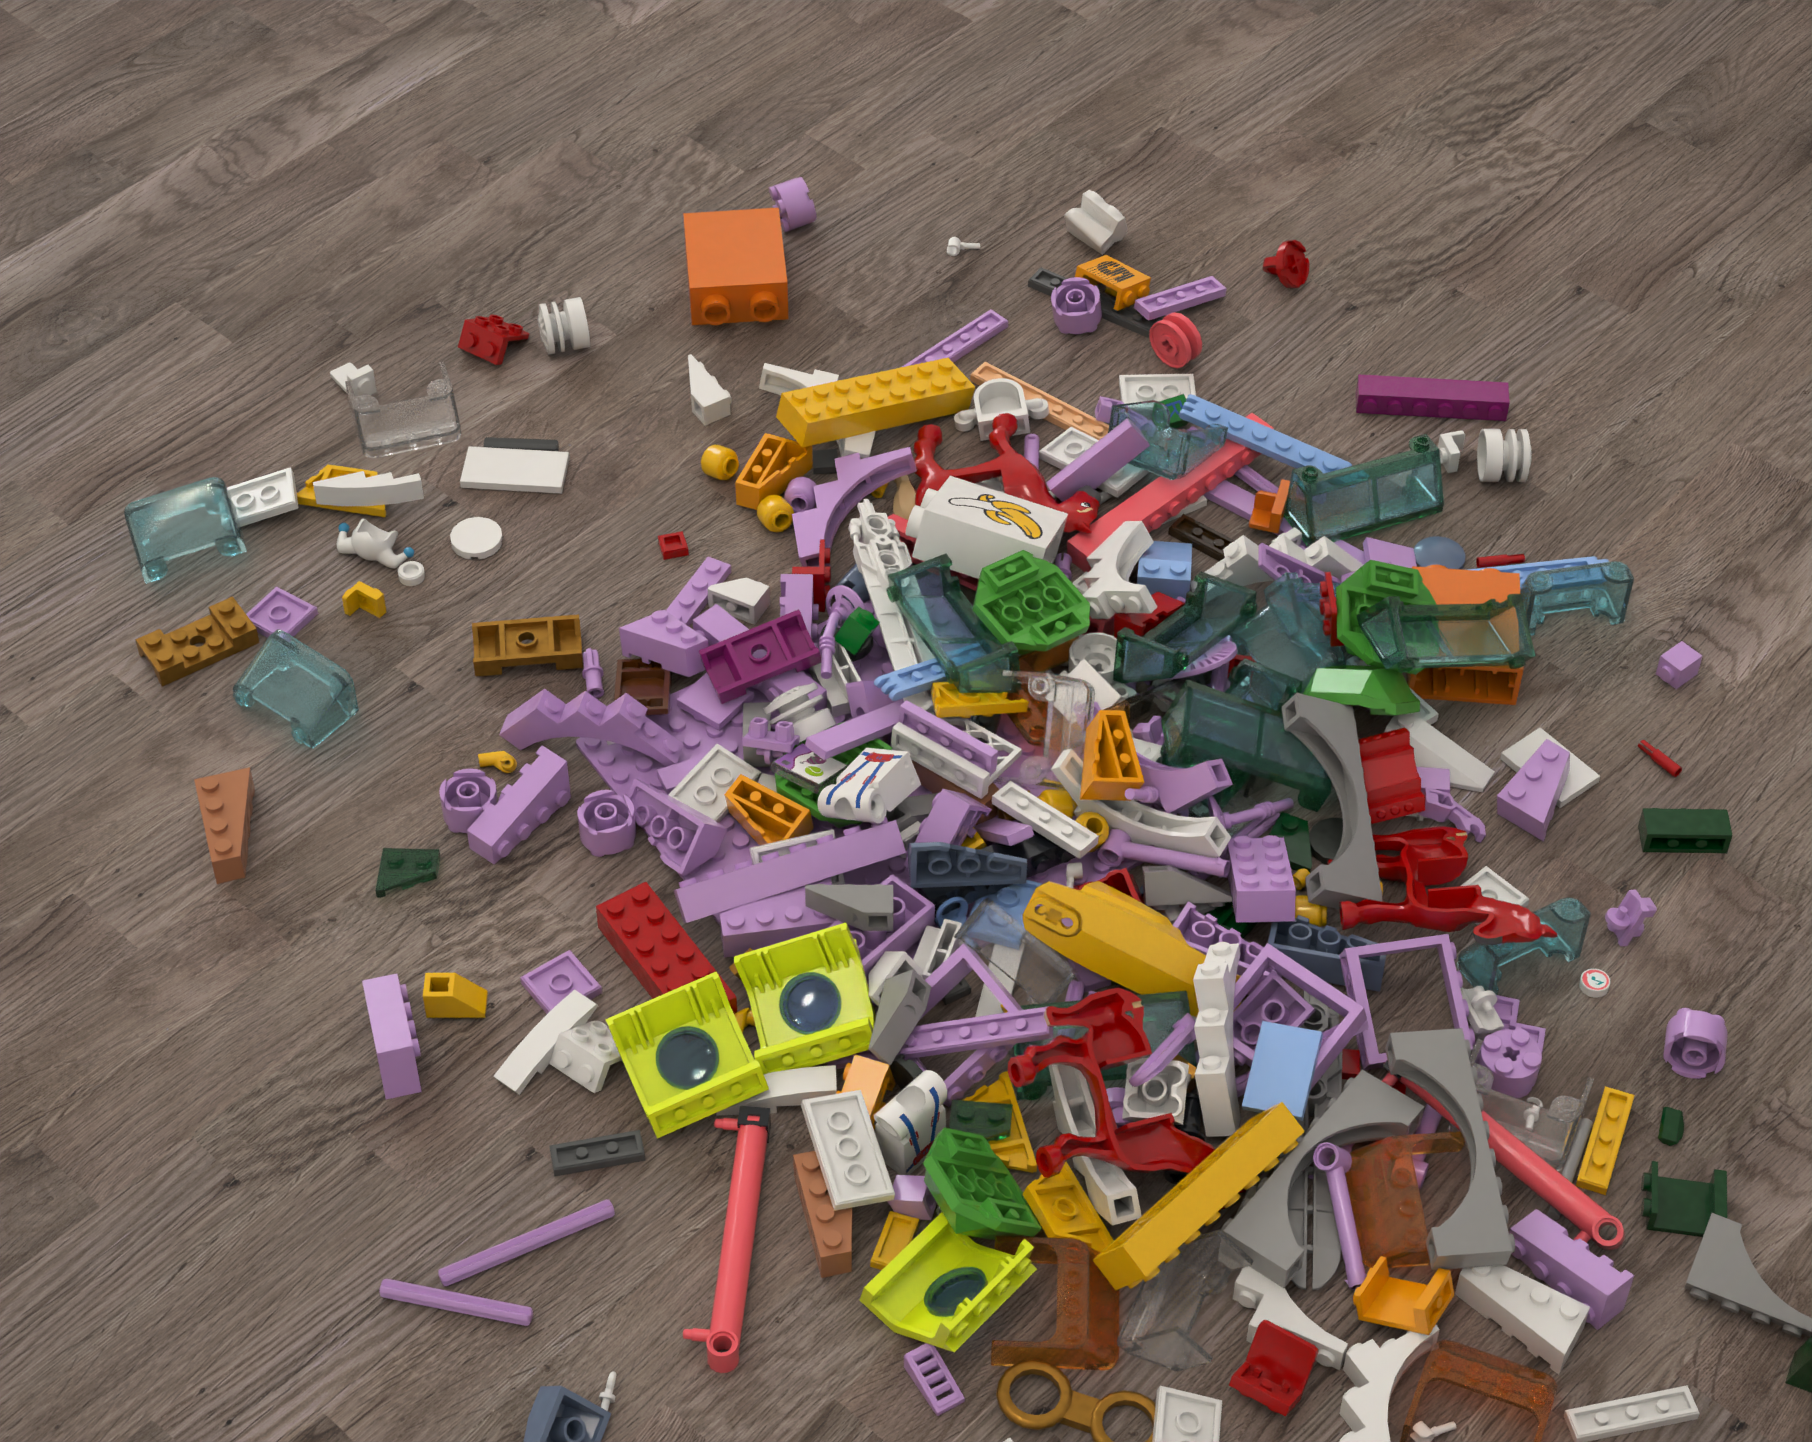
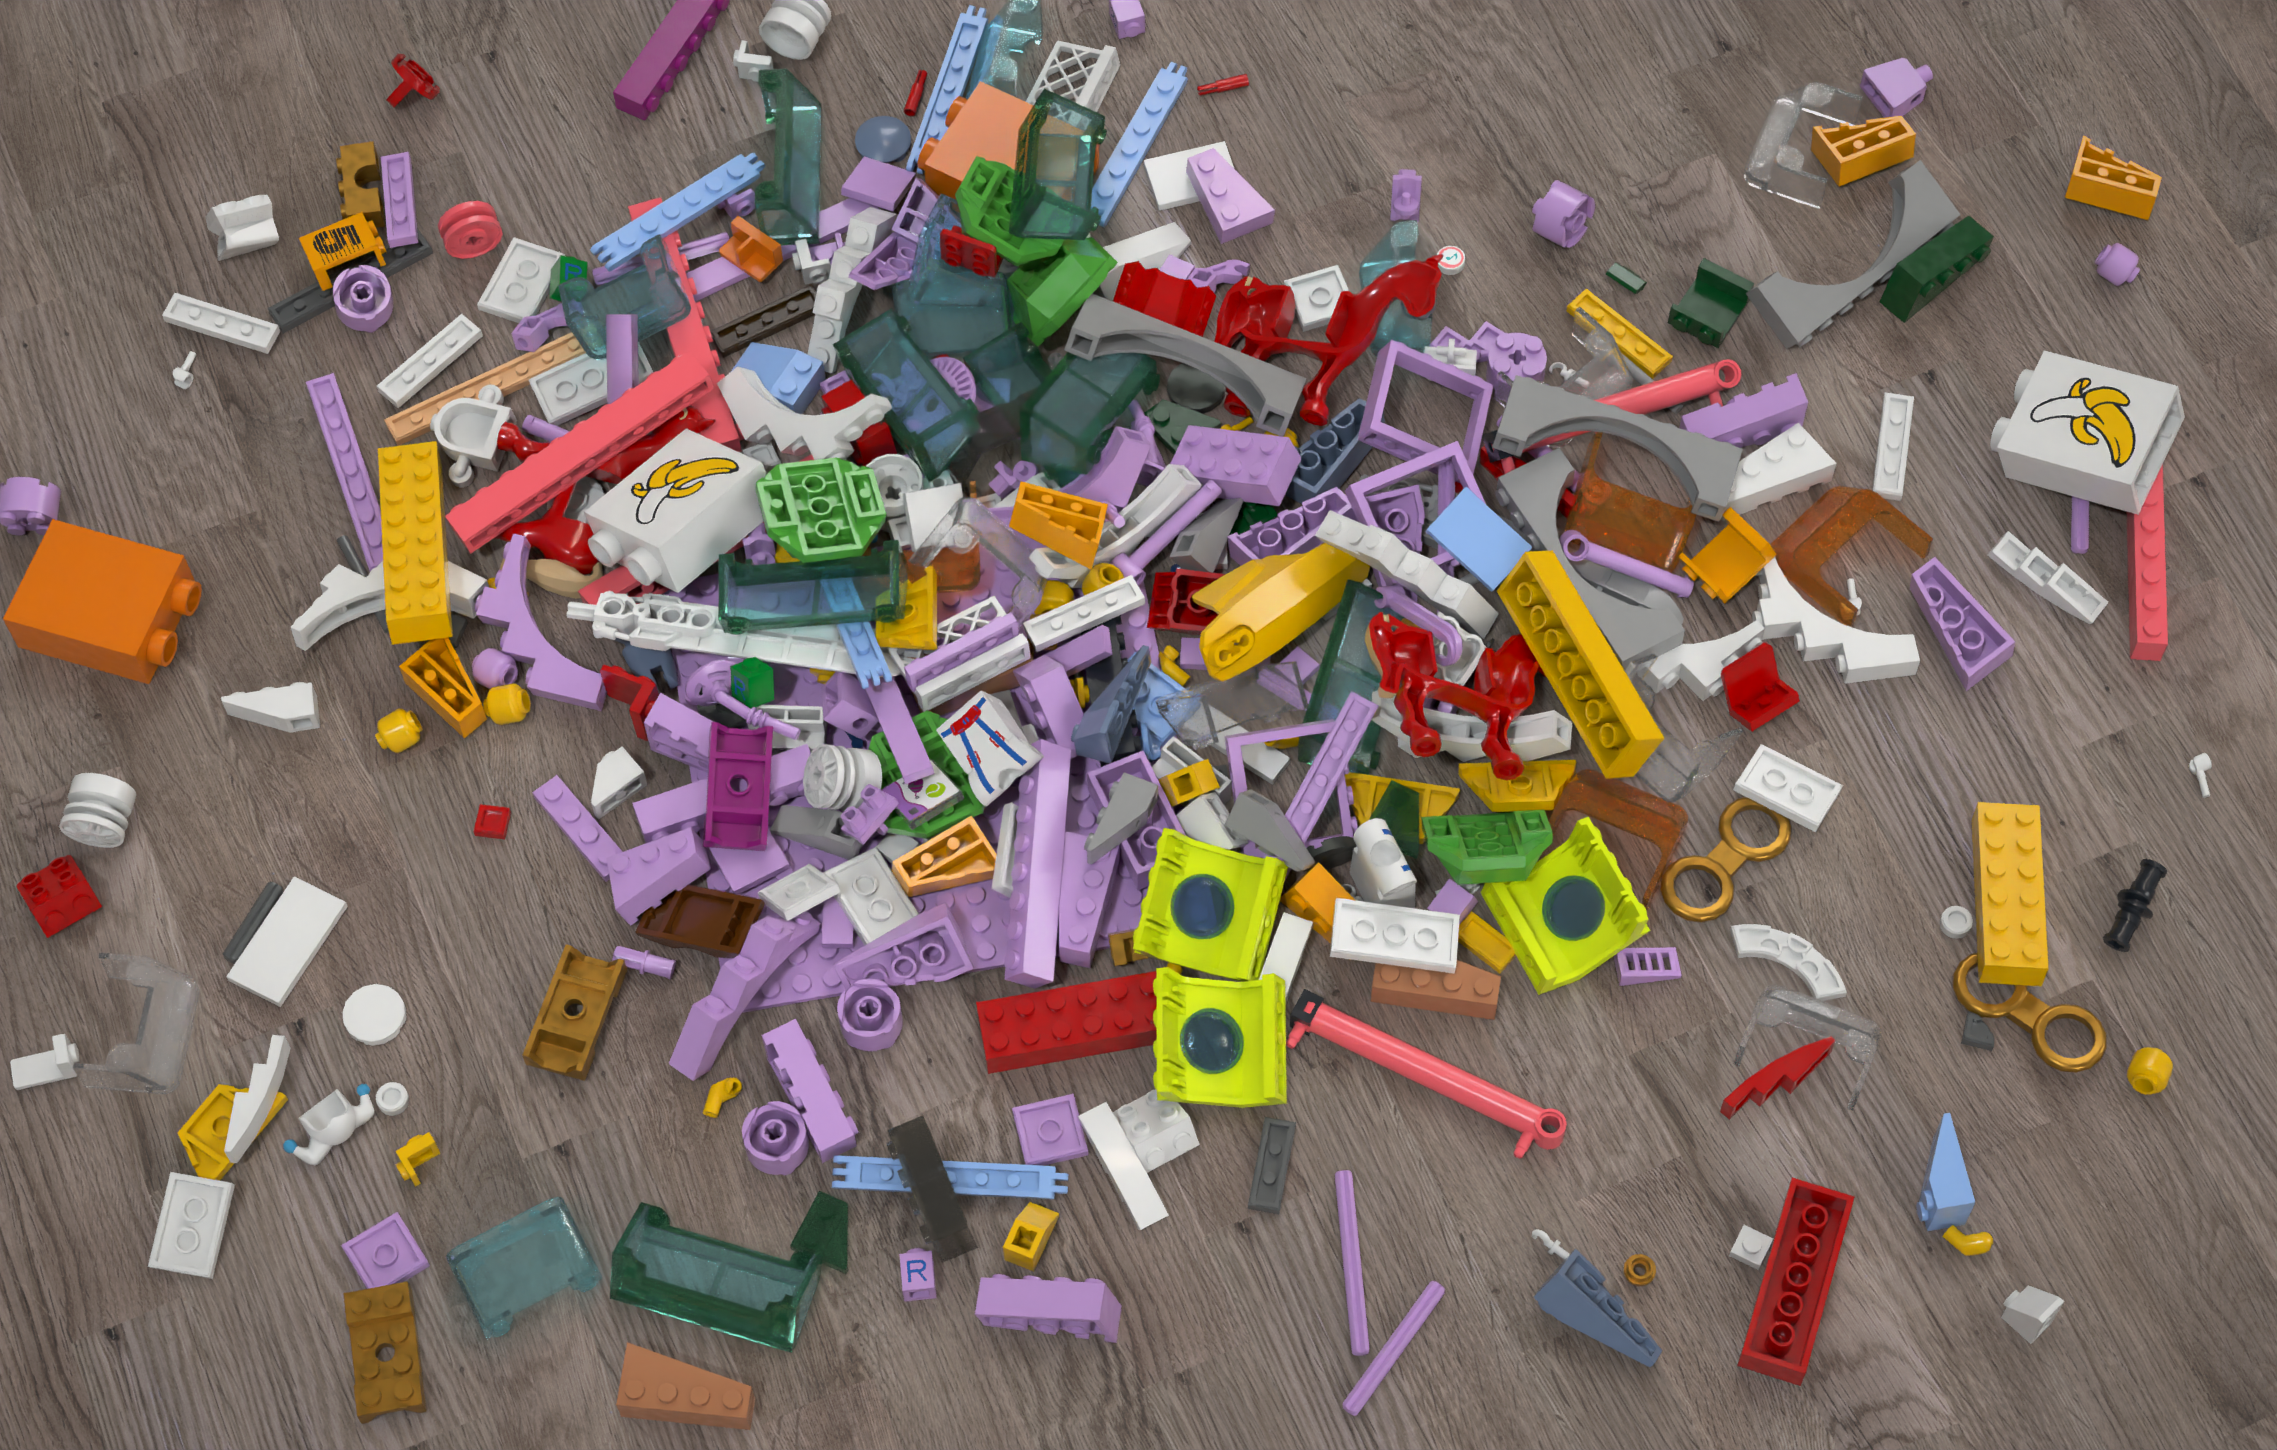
camera: 65 degrees left, 15 degrees up
(183, 523) = (214, 1316): clear light blue windscreen -> none
(333, 808) = (713, 1281): none -> windscreen
(388, 937) = (917, 1275): none -> lavender brick
(459, 909) = (931, 1189): none -> clear smoke wedge
(486, 929) = (966, 1177): none -> light blue hinge
(690, 732) = (798, 892): none -> white tile
(916, 942) = (1189, 782): none -> yellow slope
(1008, 458) = (579, 451): none -> coral brick
(1012, 248) = (221, 323): none -> white plate
(1051, 367) = (429, 361): none -> white plate
(1073, 871) = (1135, 622): white hand -> none
(1186, 268) = (360, 166): none -> pearl gold arch
(1554, 718) = (1137, 140): none -> light blue hinge
(1575, 667) = (1098, 76): none -> white fence
(1685, 830) = (1320, 107): dark green brick -> none

